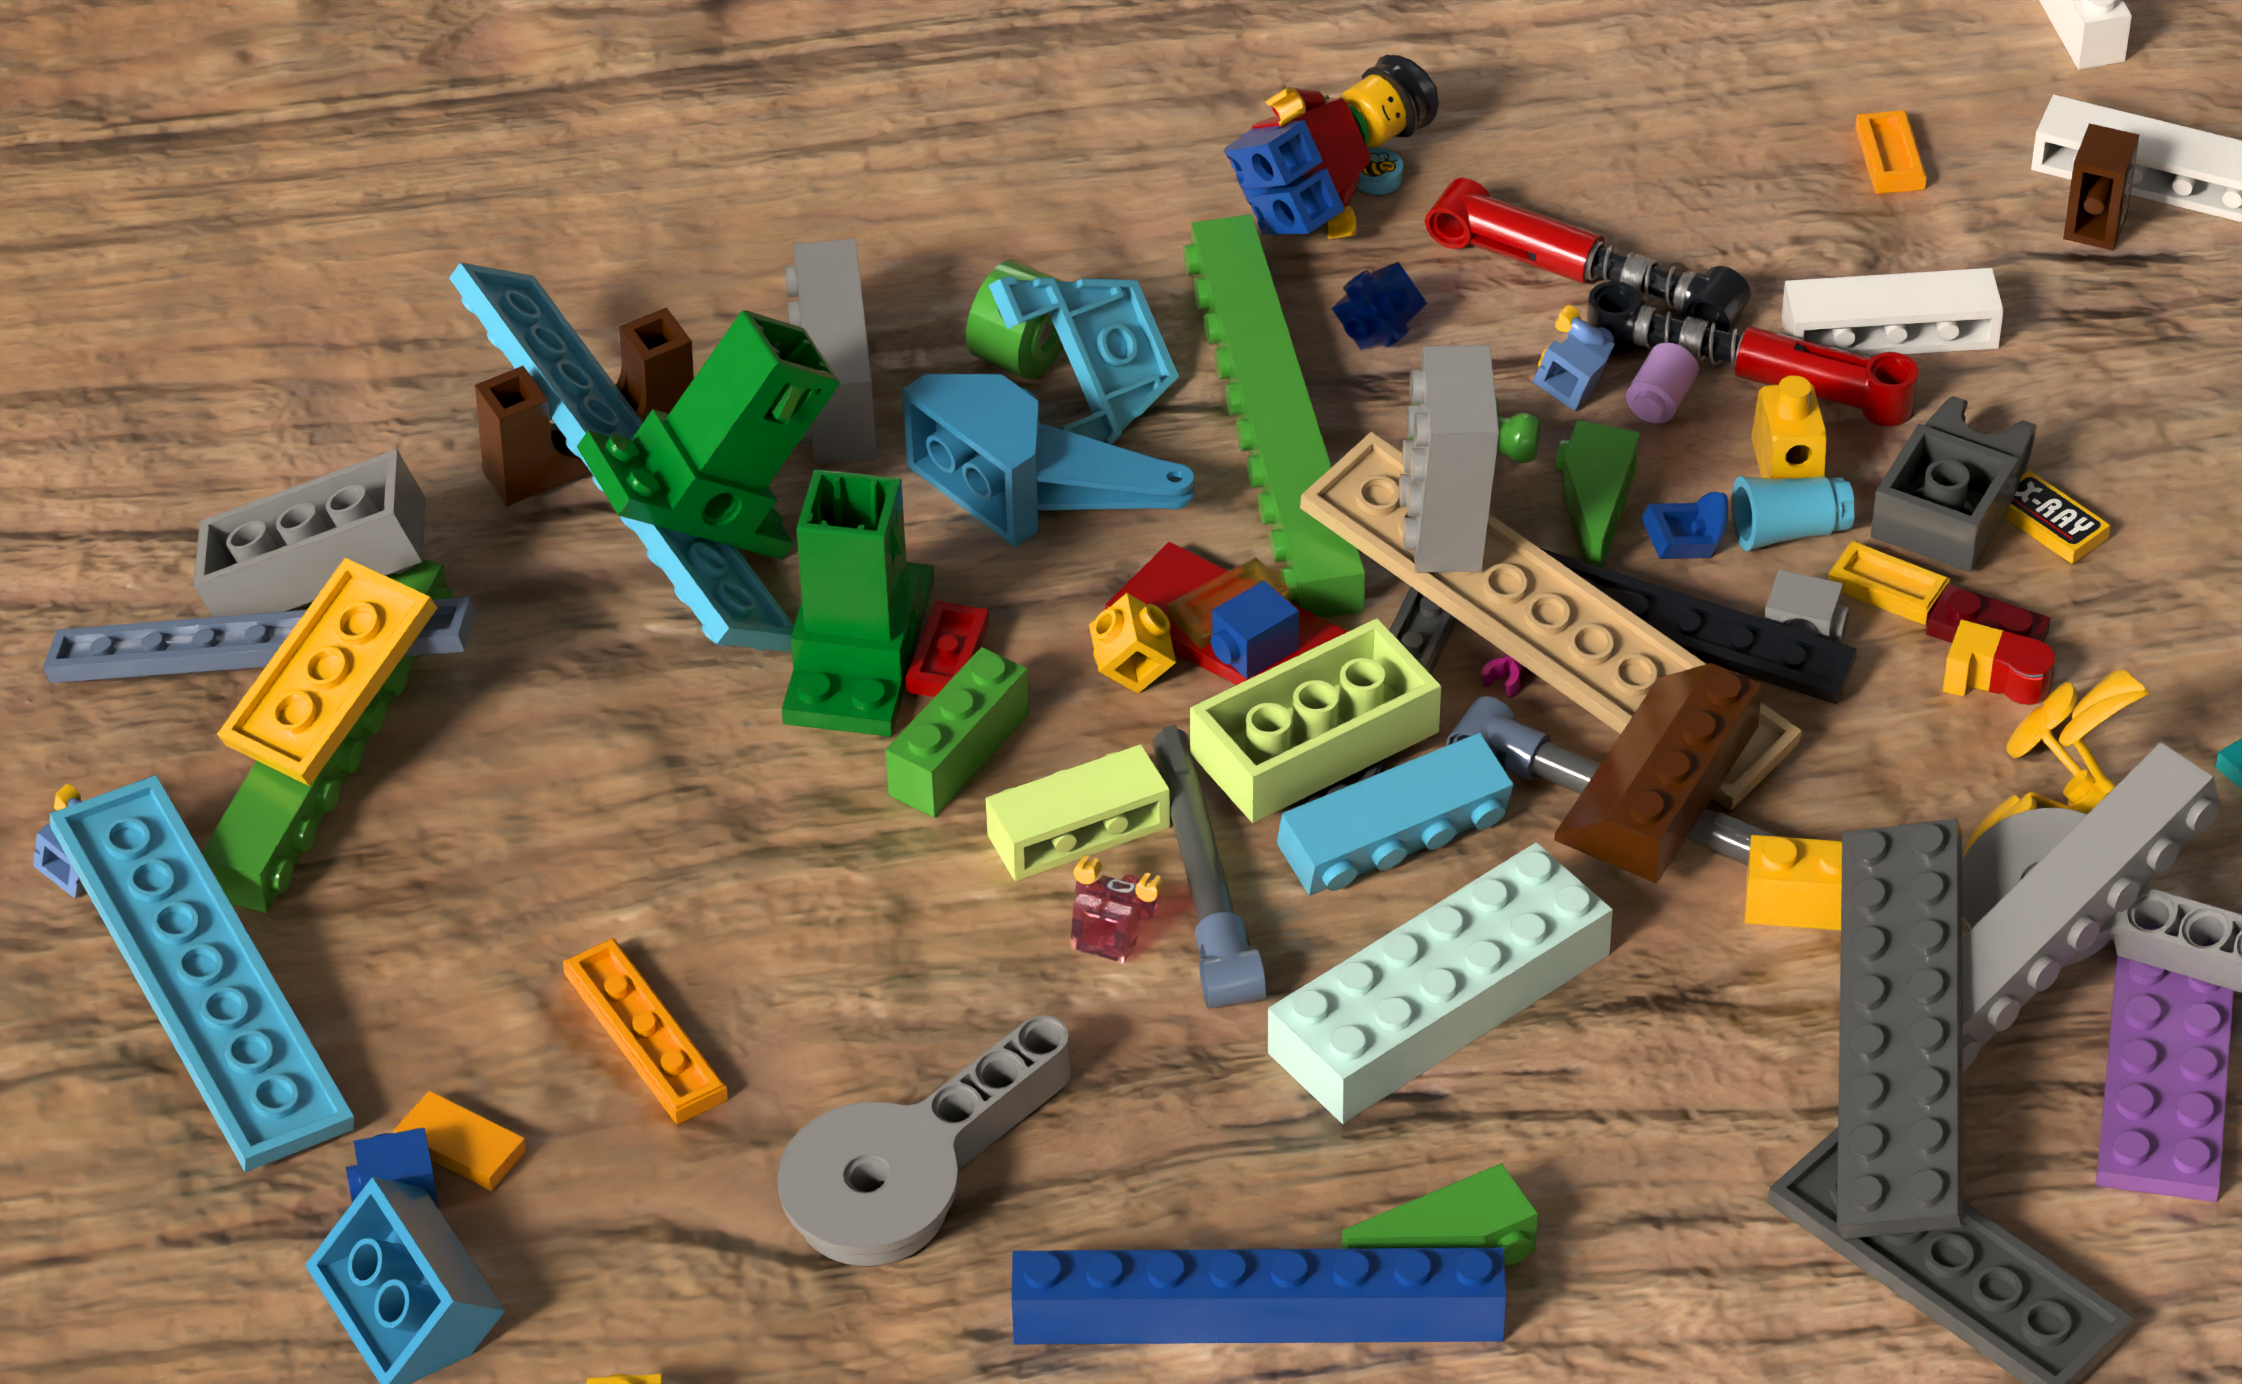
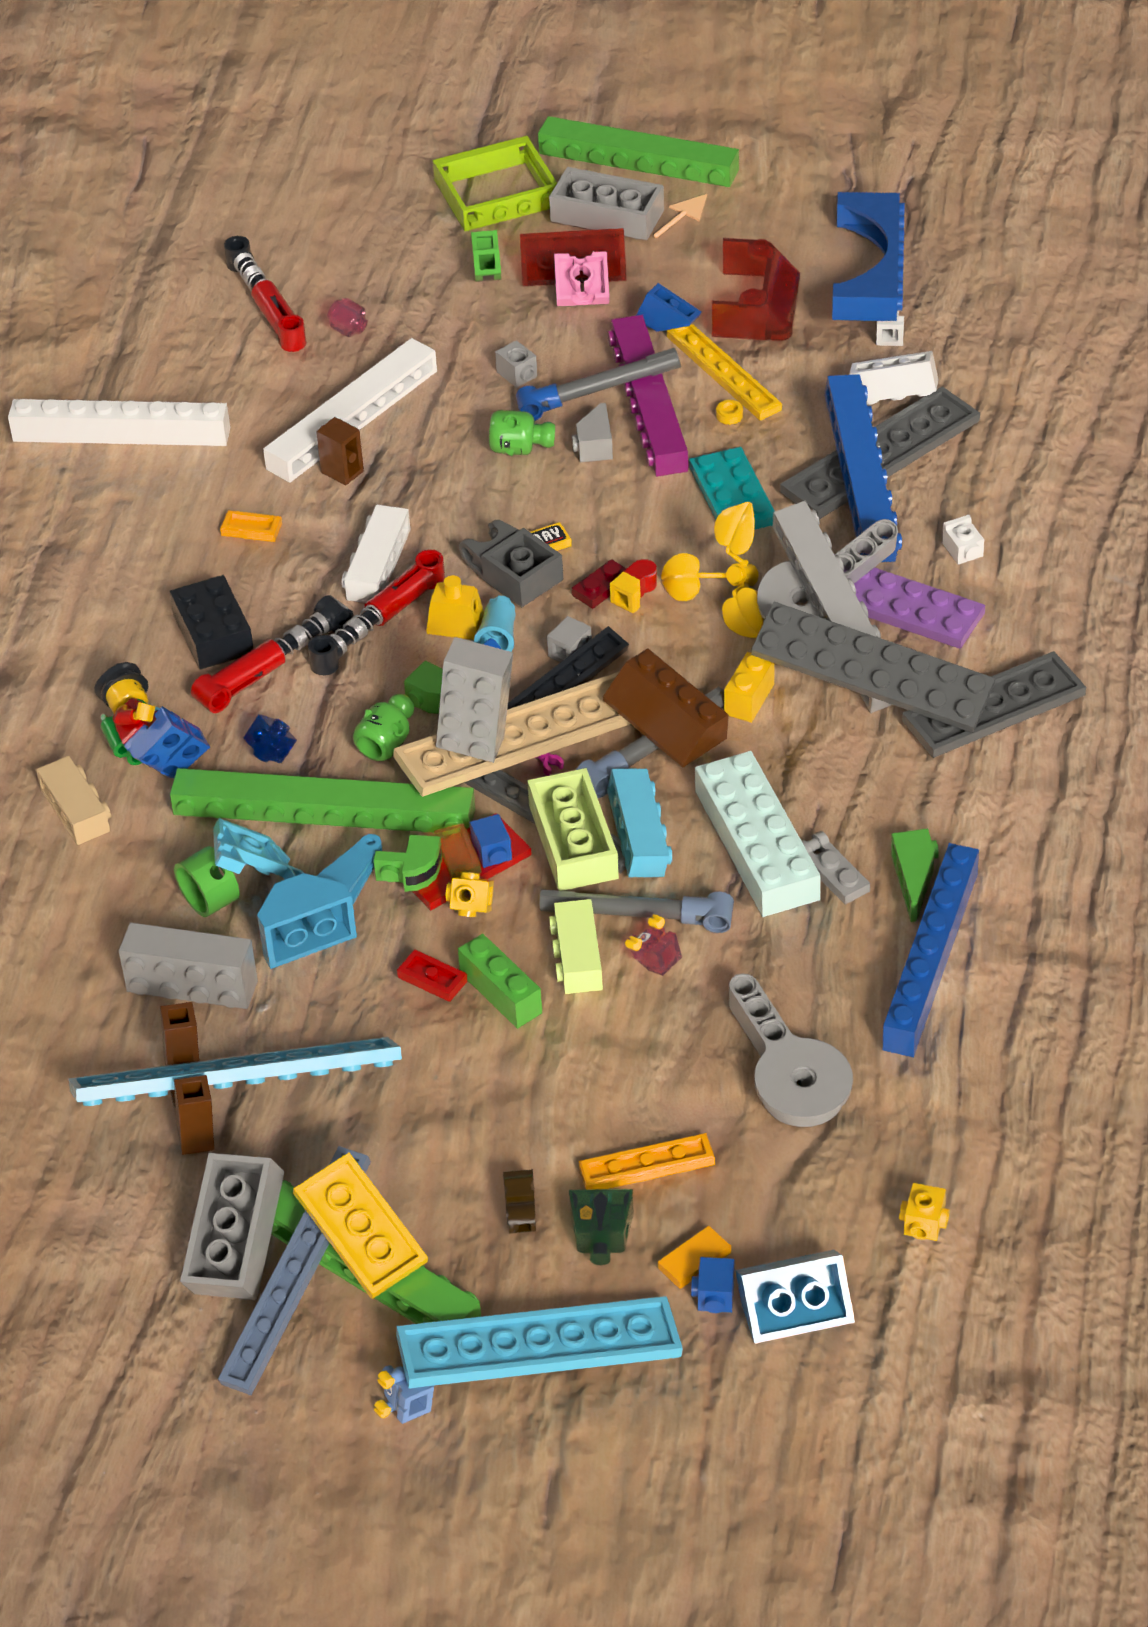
camera: 70 degrees left, 0 degrees up
(480, 889) = (520, 1201): none -> dark brown leg
(483, 995) = (601, 1221): none -> clear green torso
(723, 441) = (280, 1023): green brick -> none
(856, 607) = (400, 995): green brick -> none
(1152, 132) = (74, 799): none -> tan brick
(1164, 555) = (415, 867): none -> bright green brick
(1417, 1118) = (836, 870): none -> light grey plate
(1574, 366) = (353, 676): medium blue piece -> none
(1619, 163) = (211, 622): none -> black brick
(1662, 383) = (381, 649): lavender brick -> none
(1888, 582) = (555, 609): yellow tile -> none

